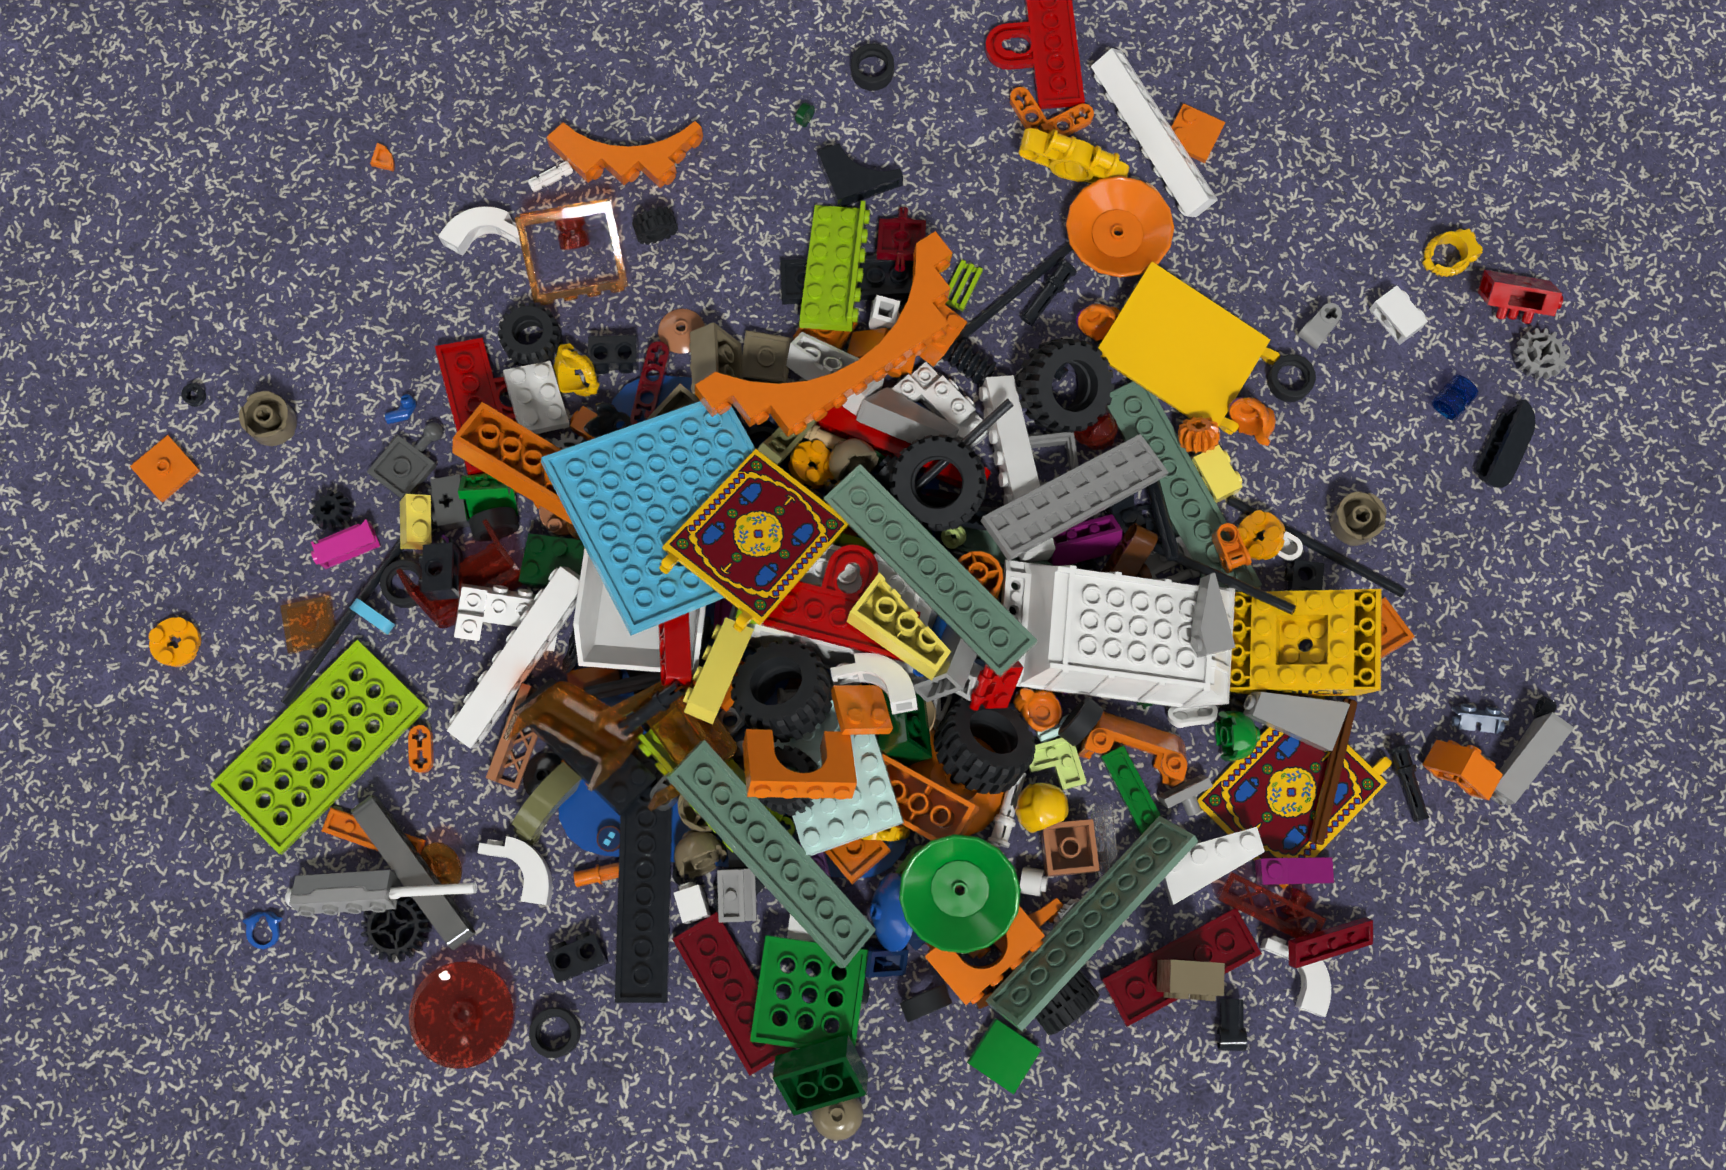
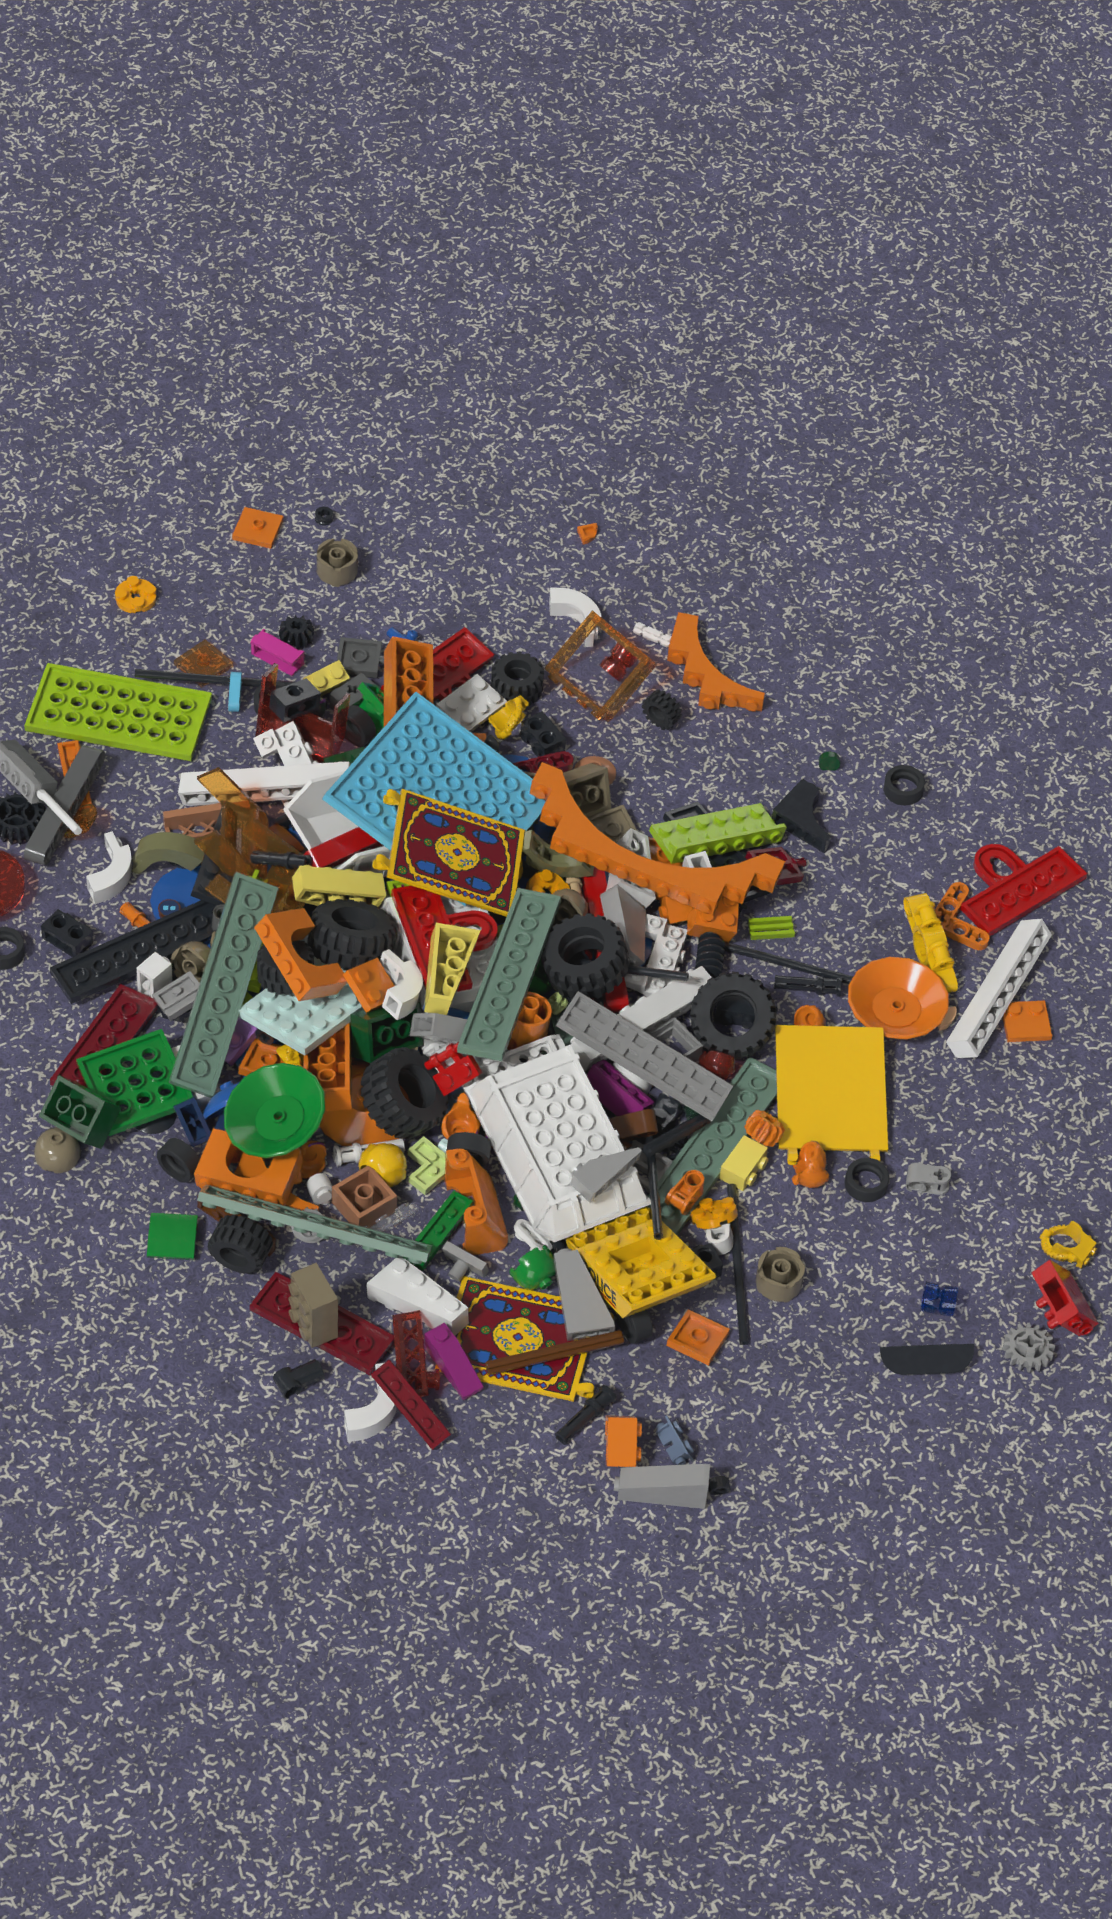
camera: 55 degrees right, 25 degrees down
(414, 749) = (157, 770): orange beam -> none
(1398, 314) = (980, 1229): white brick -> none

